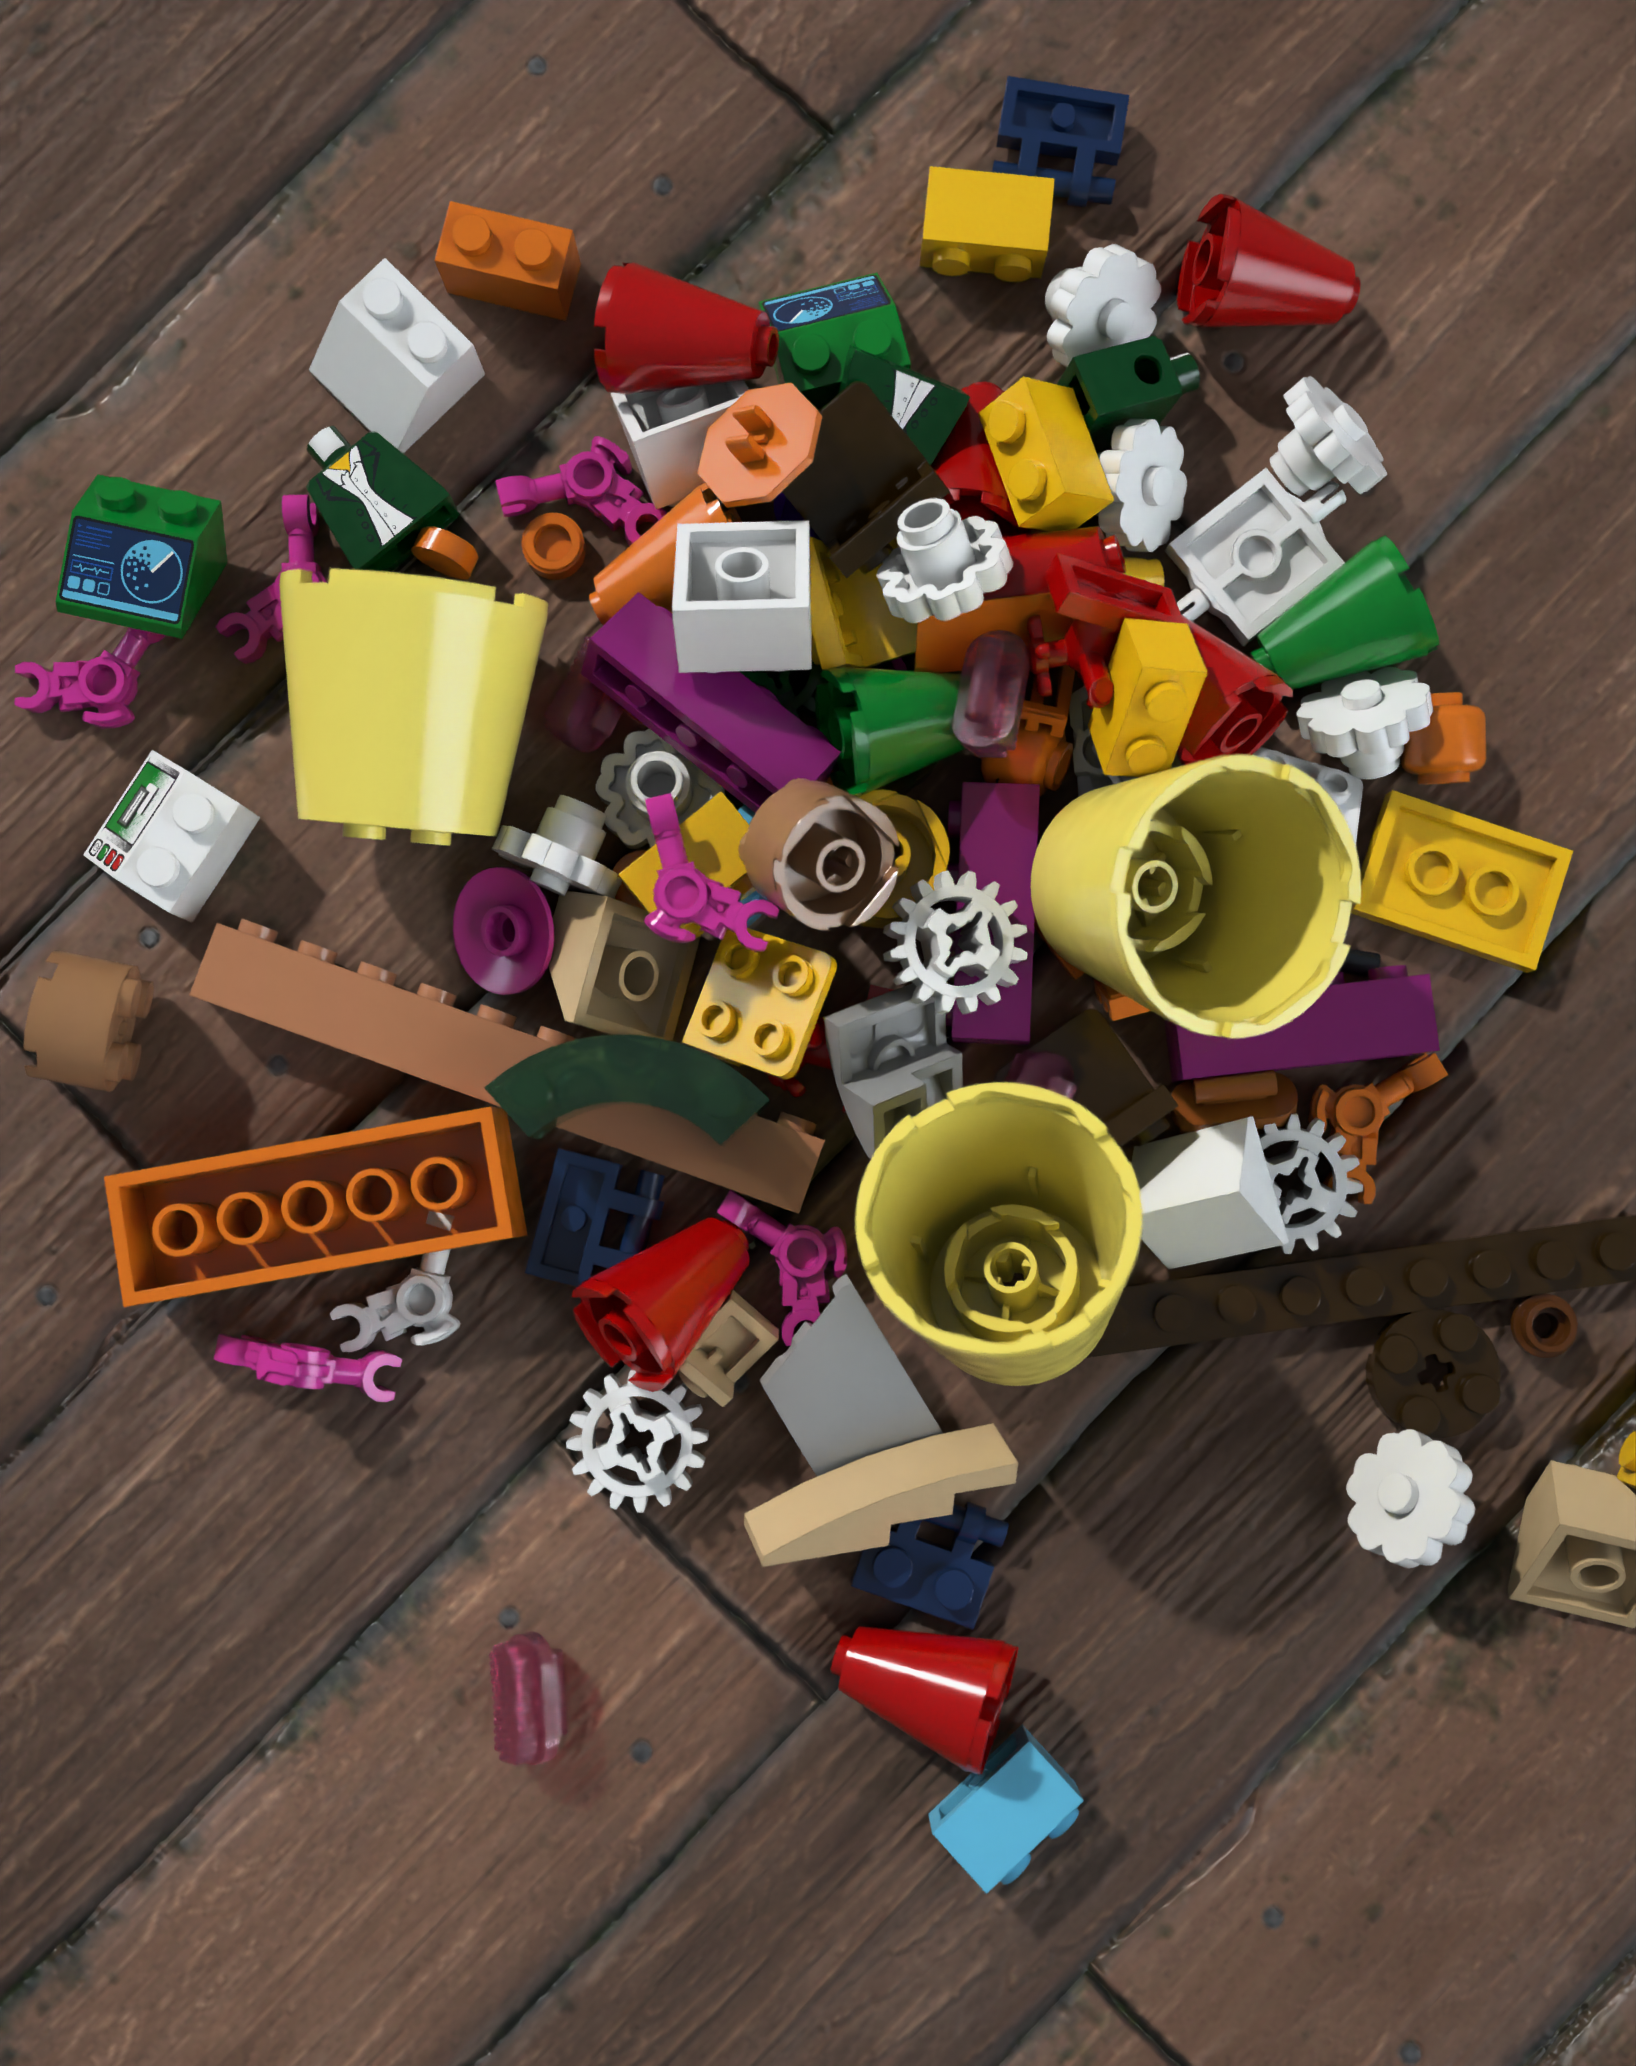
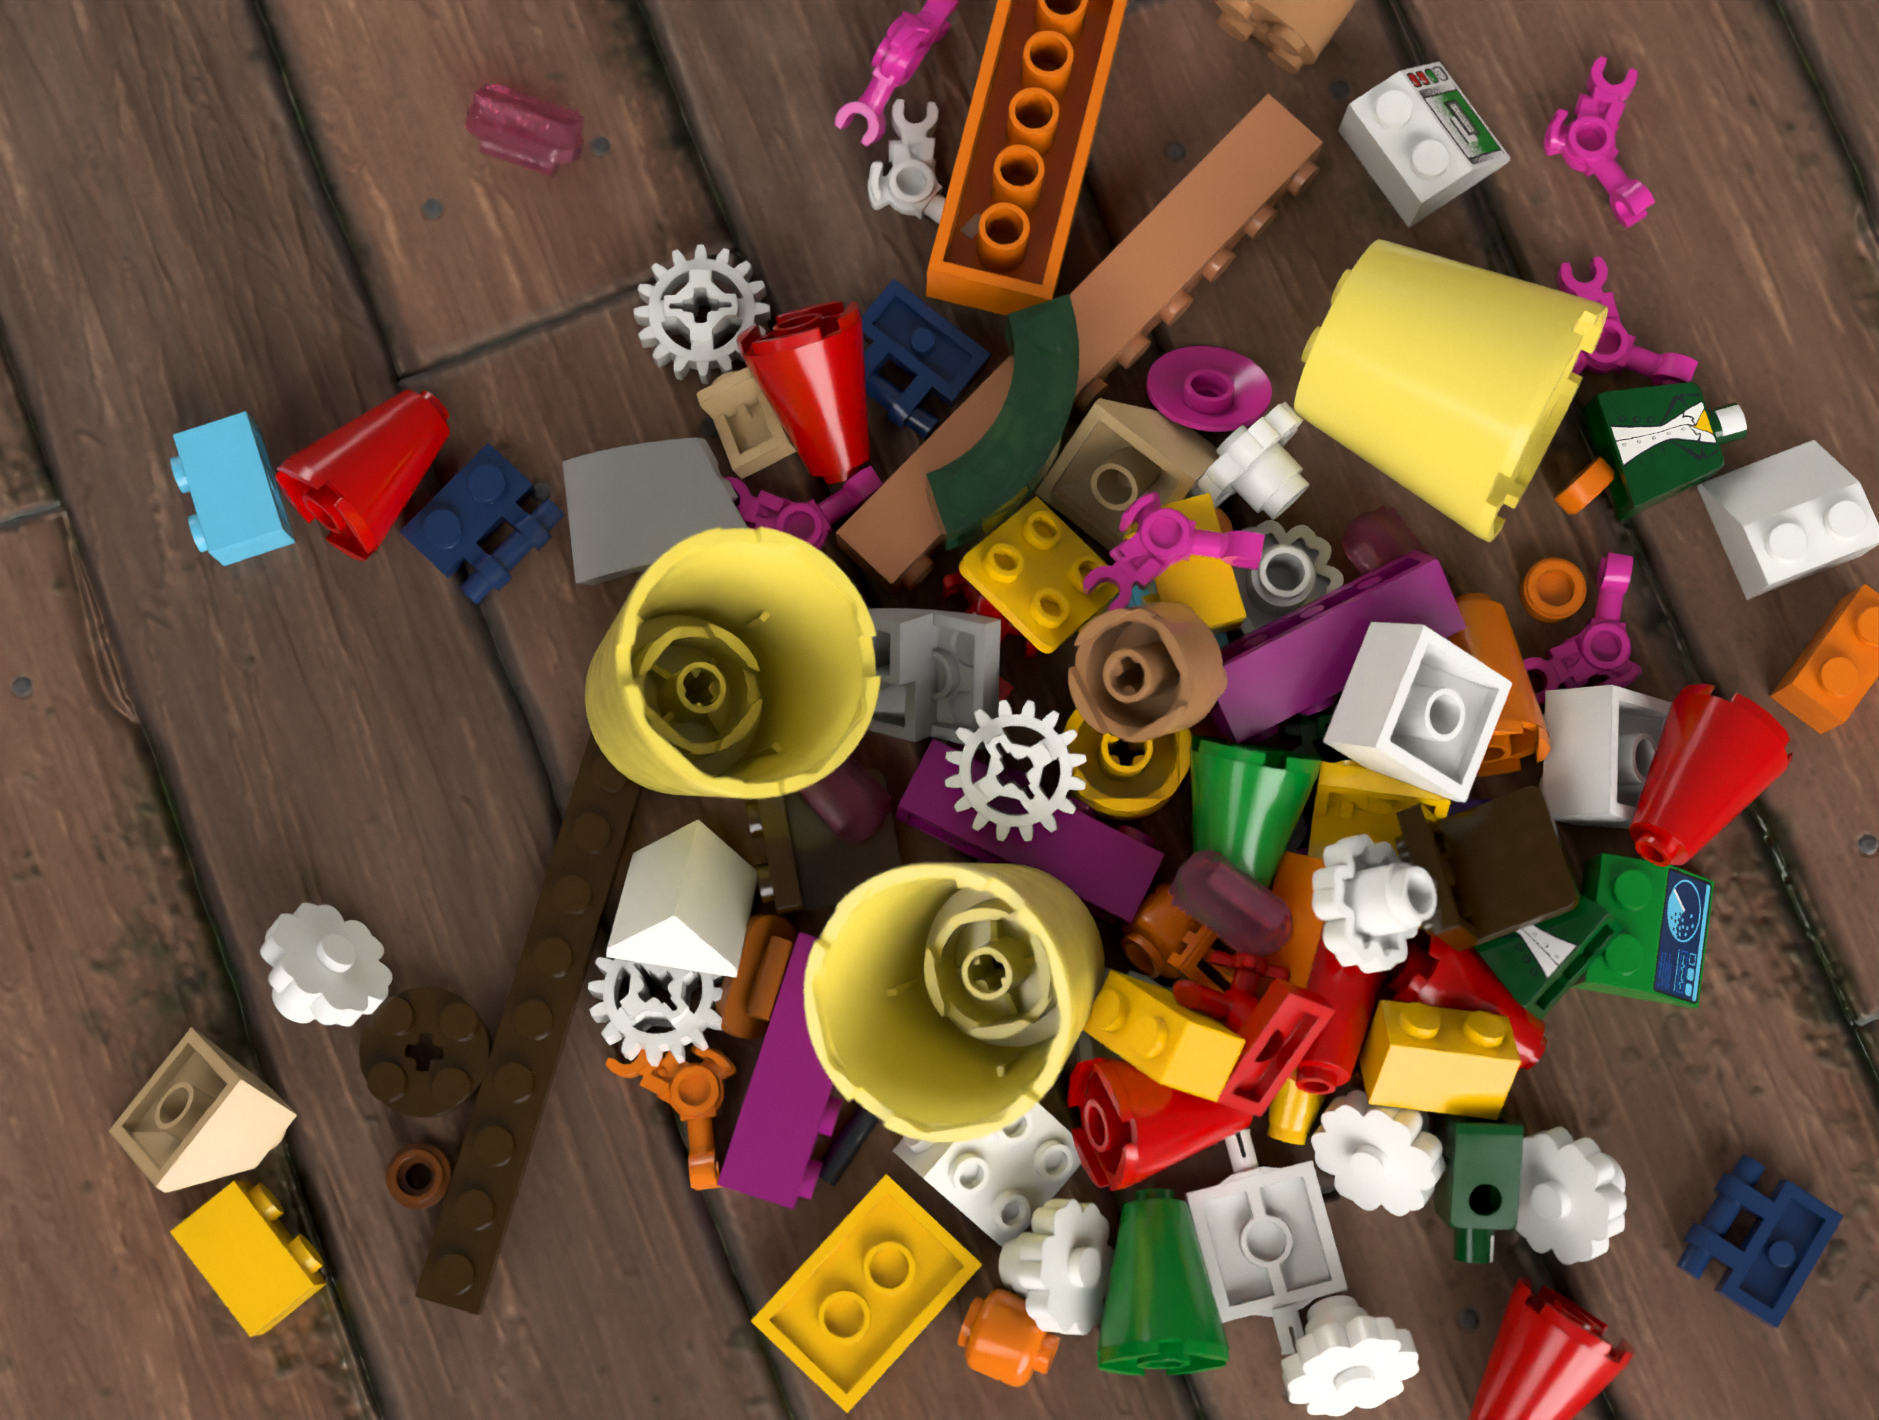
camera: 115 degrees right, 5 degrees down
(141, 556) = (1688, 213): slope -> none
(760, 445) = (1556, 790): orange piece -> none
(861, 1500) = (559, 474): tan slope -> none
(986, 223) = (1701, 1128): yellow brick -> none

